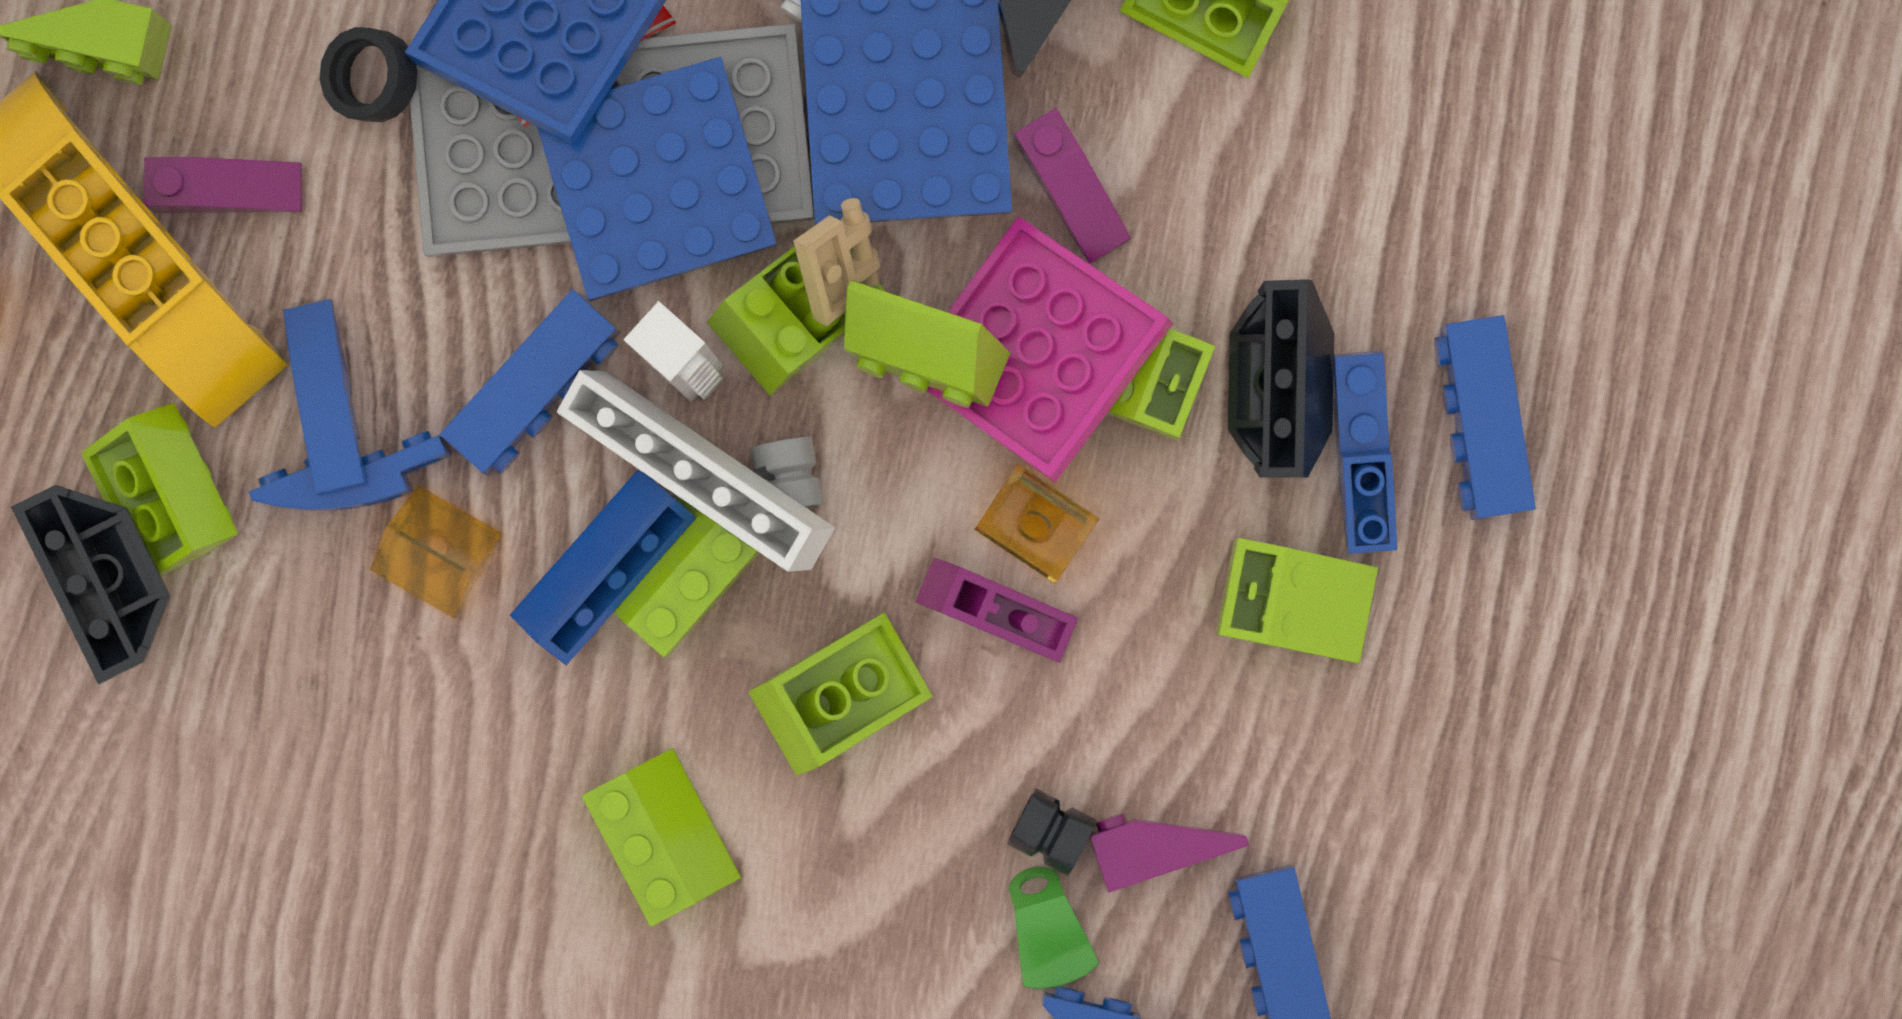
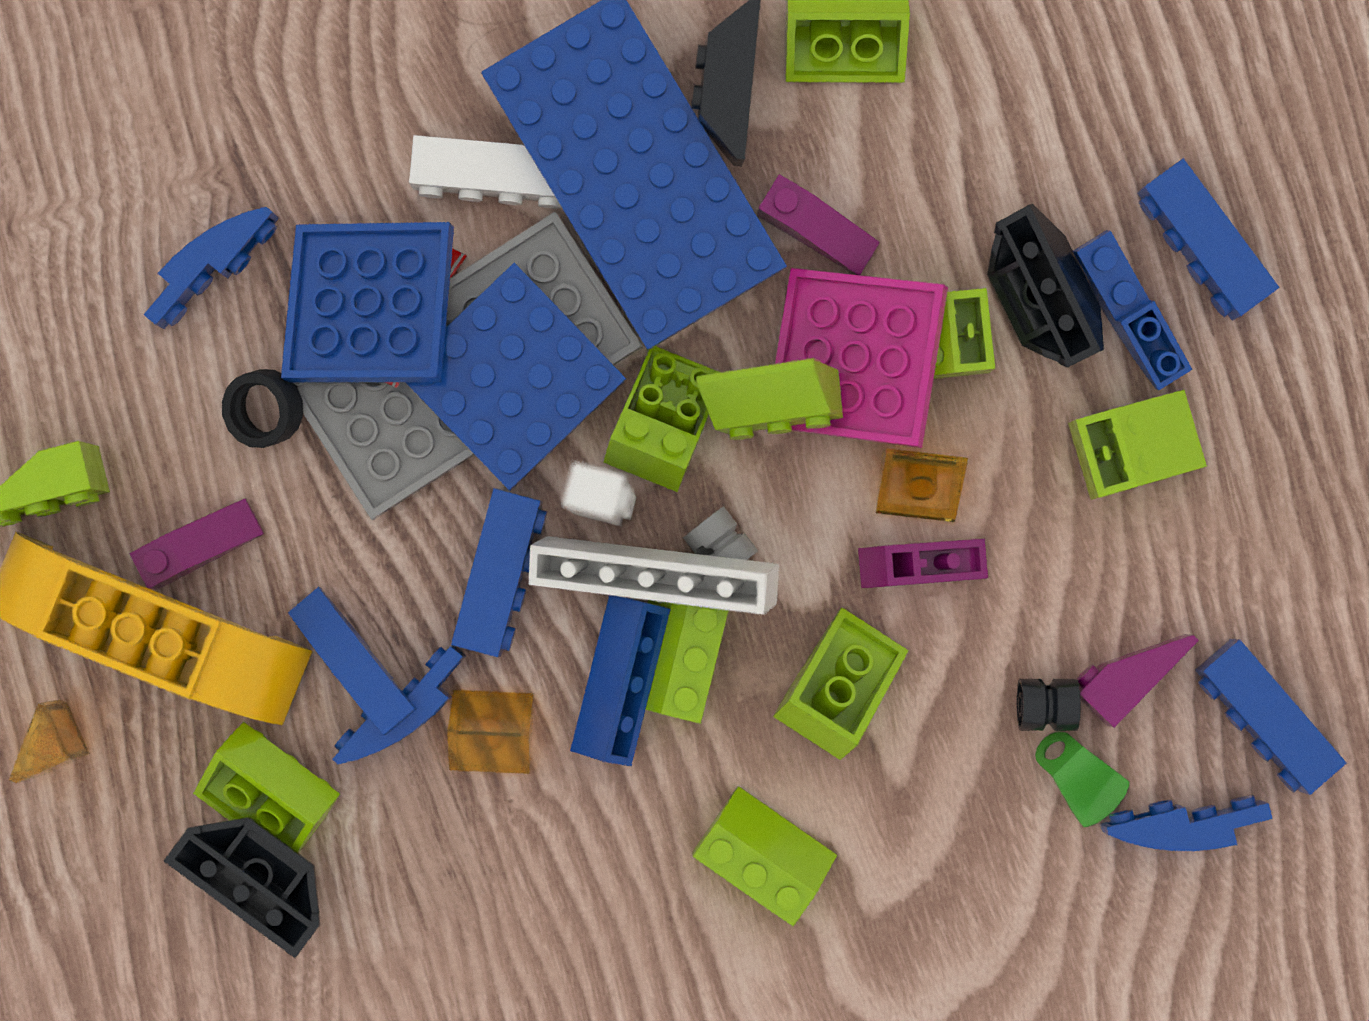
camera: 25 degrees left, 0 degrees up
(830, 266) = (674, 366): tan plate -> none

